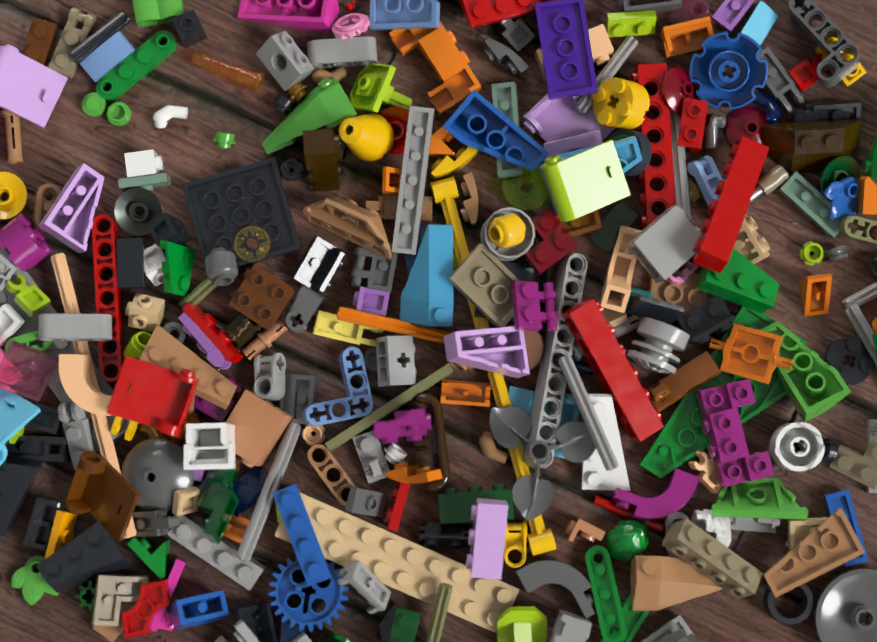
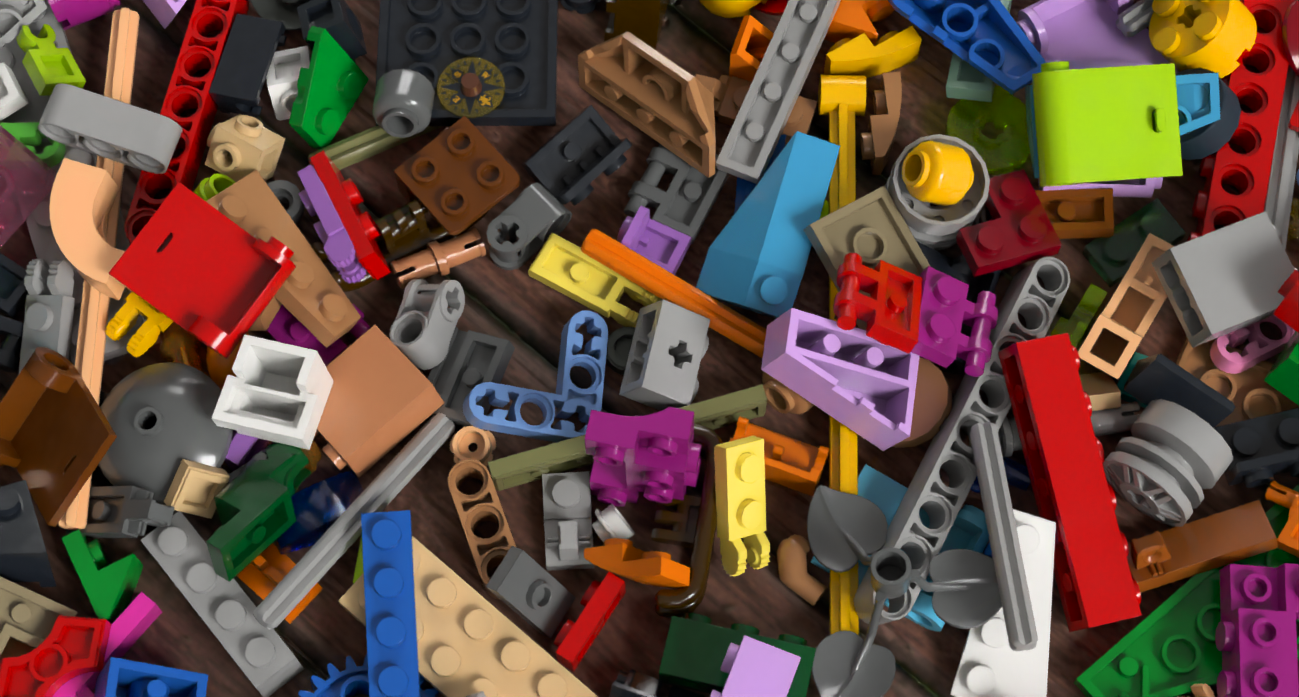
camera: 20 degrees right, 15 degrees down
(456, 428) = (741, 504): none -> light yellow hinge
(503, 313) = (893, 302): none -> red plate
(593, 287) = (1082, 315): none -> clear neon green plate

